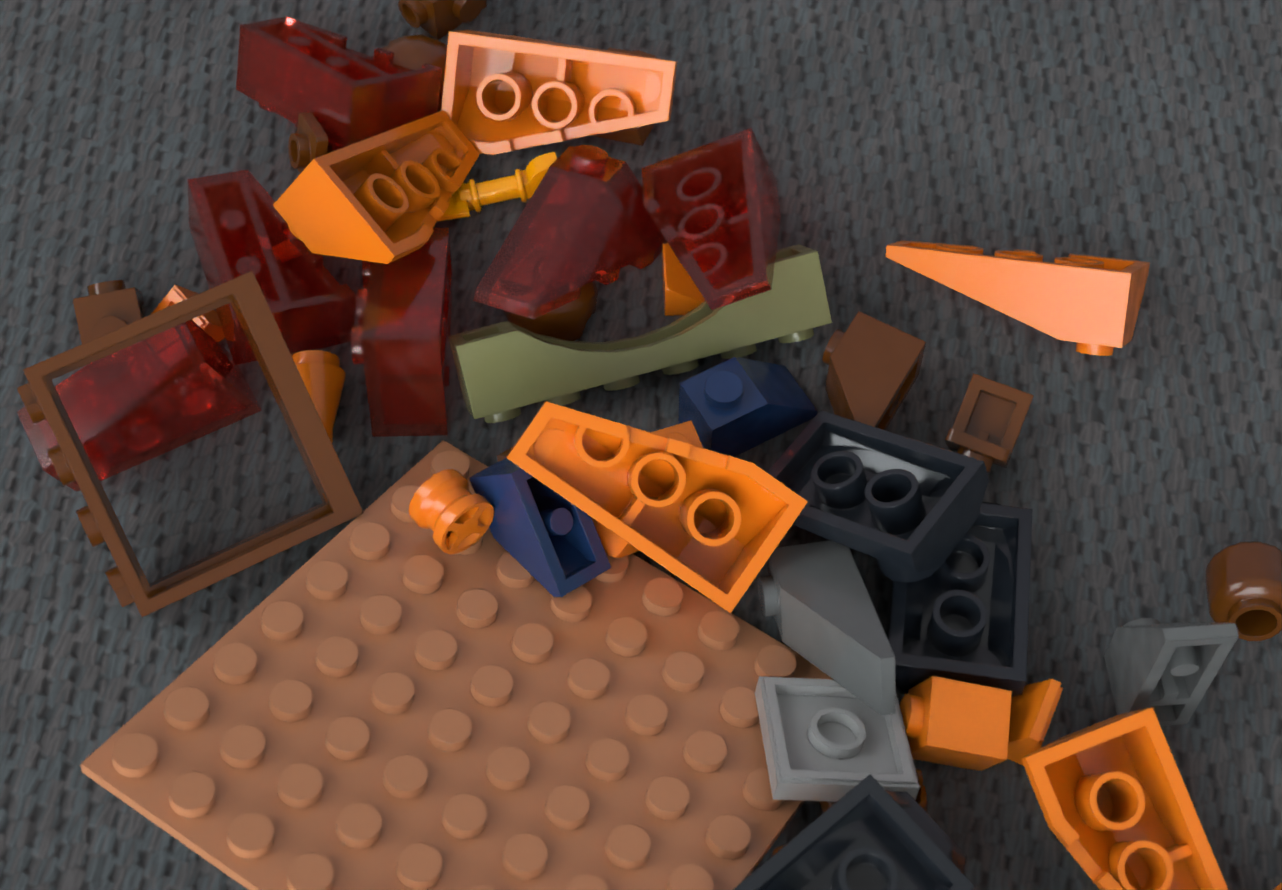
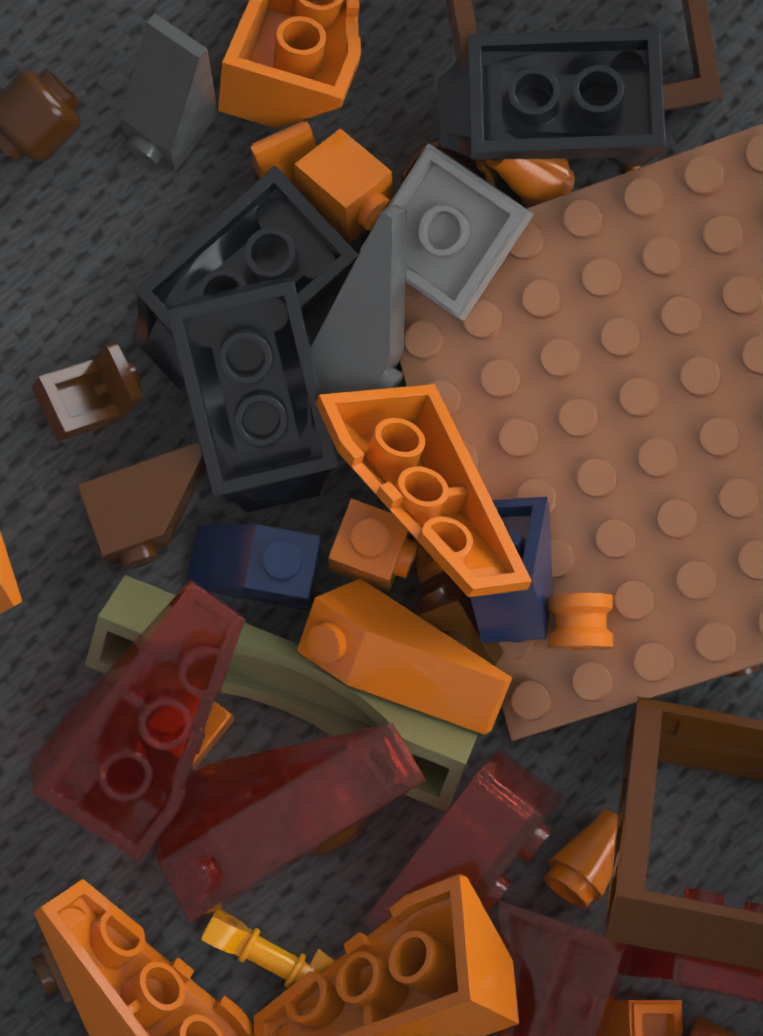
camera: 140 degrees left, 20 degrees up
(612, 385) = (401, 657): none -> orange slope

